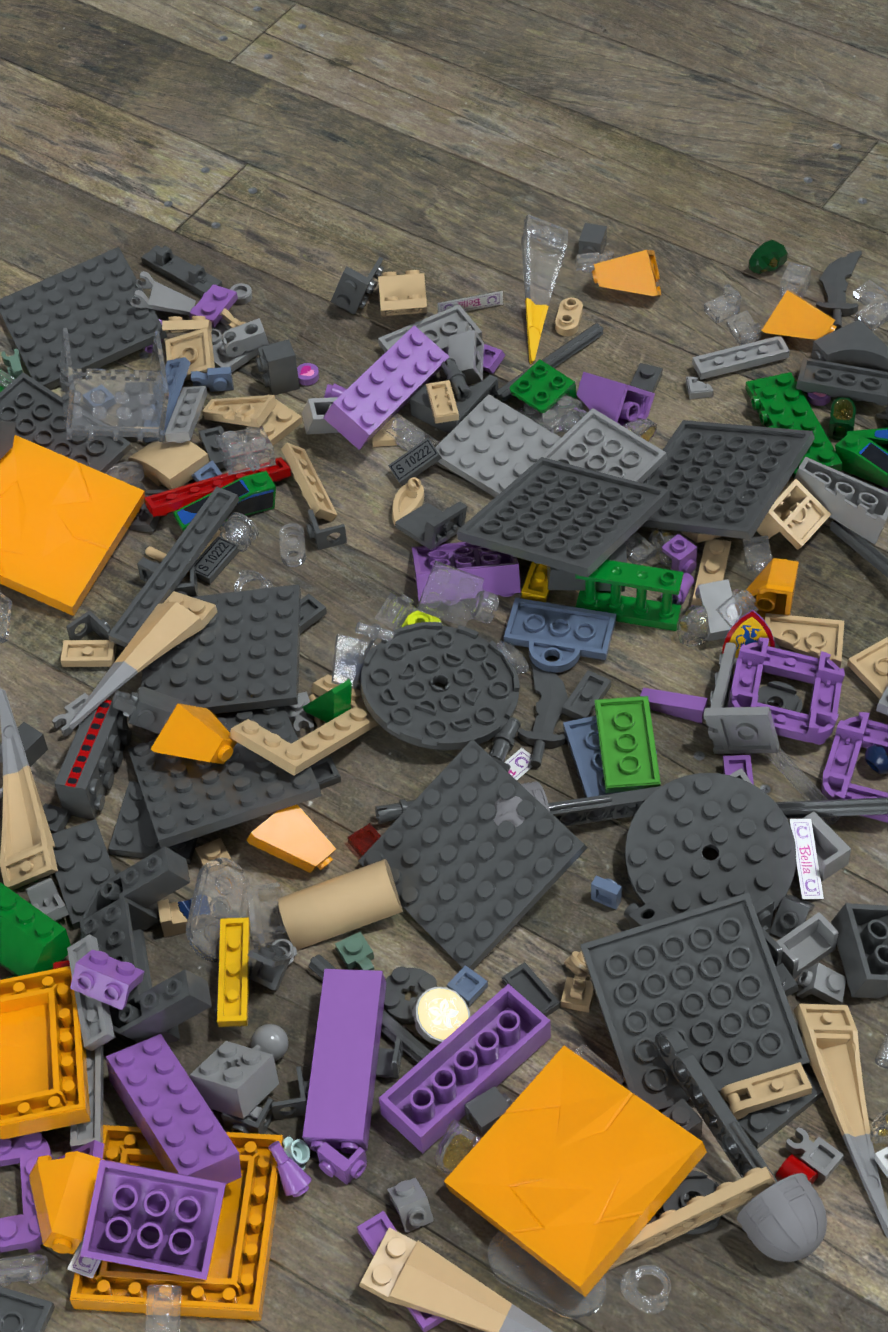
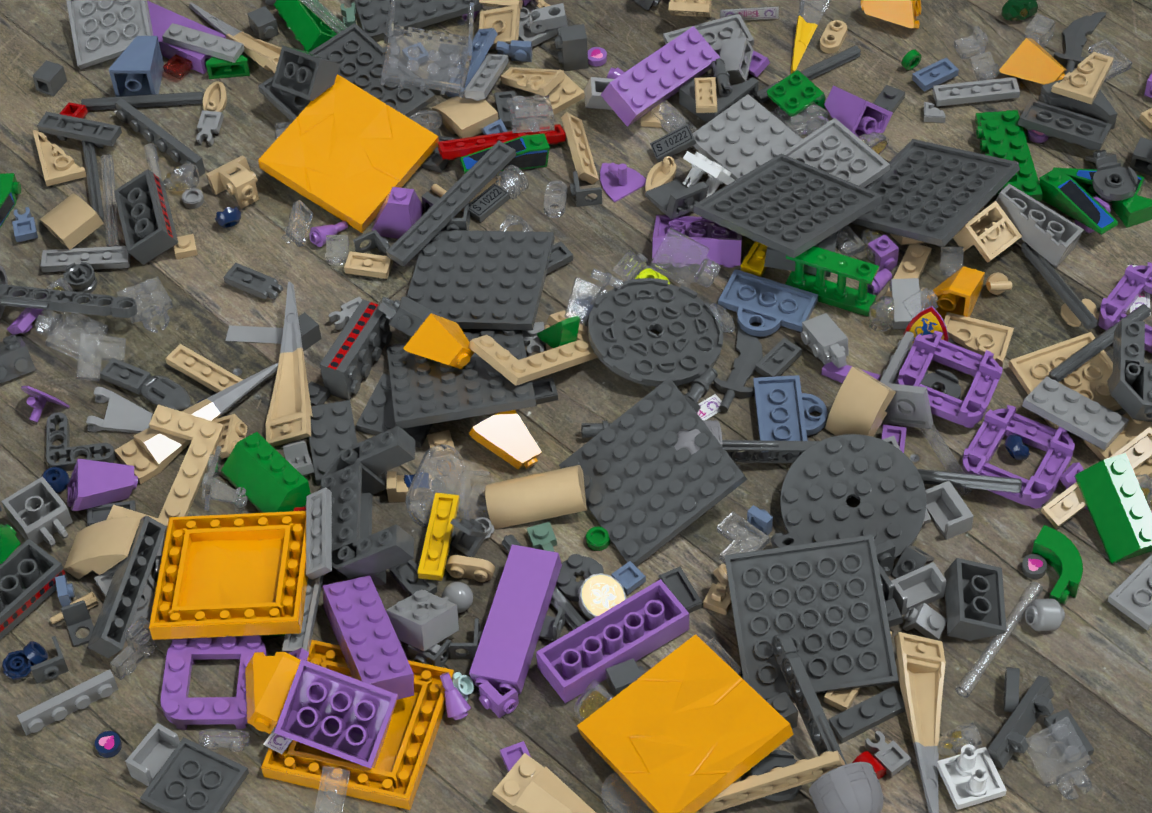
camera: 10 degrees right, 0 degrees up
(28, 624) = (318, 234): none -> medium lavender cone
(48, 640) = (337, 249): none -> clear bracket
(105, 978) = (332, 522): medium lavender bracket -> none
(113, 588) = (398, 213): none -> medium lavender slope
(163, 630) = (434, 252): tan plate -> none
(206, 1029) = (408, 578): none -> dark grey plate
(277, 1003) = (470, 568): none -> tan plate
(362, 513) = (620, 180): none -> medium lavender shield
(363, 839) = (566, 448): clear red tile -> none
(411, 1204) = (547, 740): light grey bracket -> none
(421, 943) = (597, 538): none -> green tile
(470, 488) = (702, 165): none -> white plate
(595, 916) = (742, 535): none -> clear plate
(626, 744) = (803, 402): bright green tile -> none
(637, 666) = (825, 340): none -> light grey hinge
(661, 331) = (911, 59): none -> green tile
(691, 344) = (935, 74): none -> sand blue plate
(694, 738) = (859, 405): none -> tan slope
(767, 1090) = (857, 696): tan plate -> none
(806, 859) = (934, 519): white sticker -> none
(814, 572) = (998, 283): none -> tan plate
(841, 418) = (1052, 155): dark green rock -> none
(861, 328) = (1085, 79): none -> tan wing

